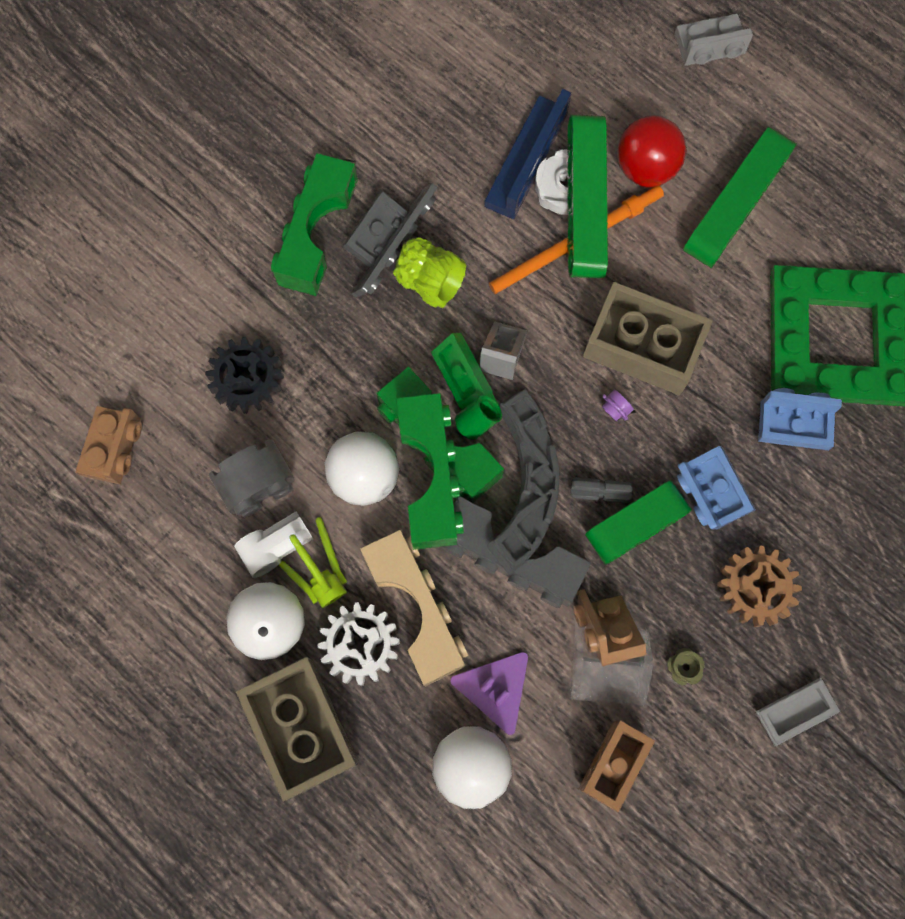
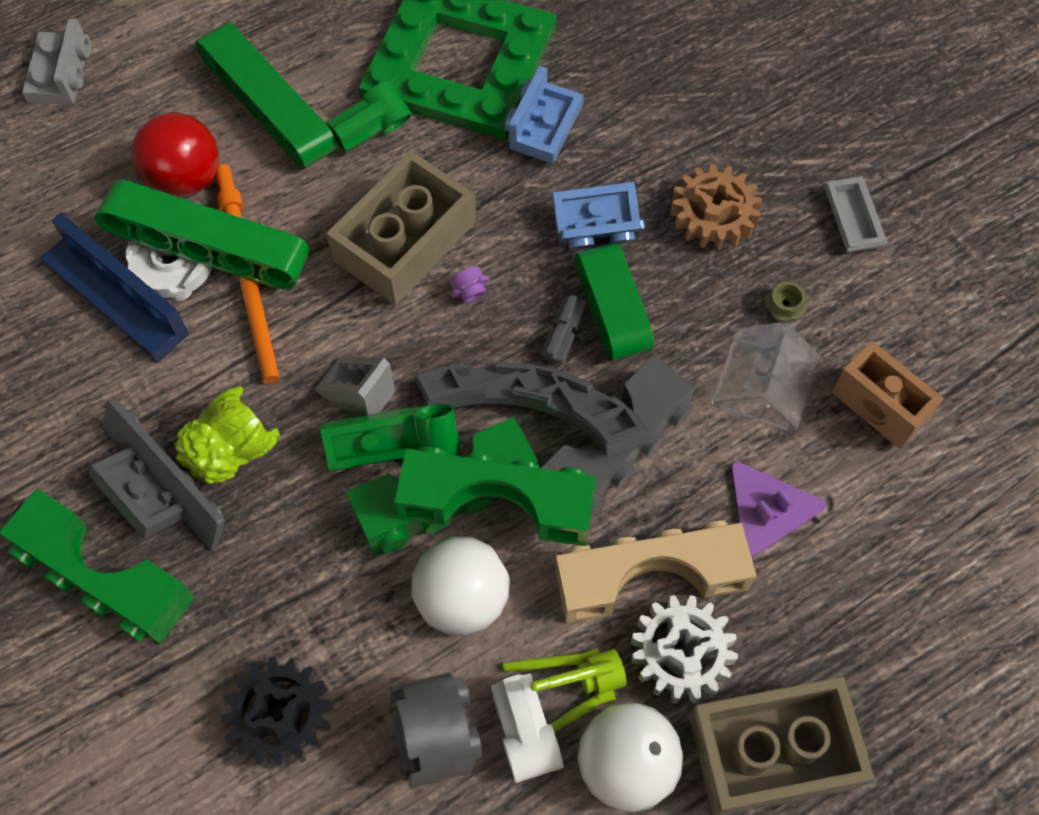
camera: 75 degrees left, 10 degrees down
(472, 767) = (863, 549): white piece -> none
(609, 629) = (733, 358): medium nougat bracket -> none
(752, 287) = (378, 112): none -> green piece

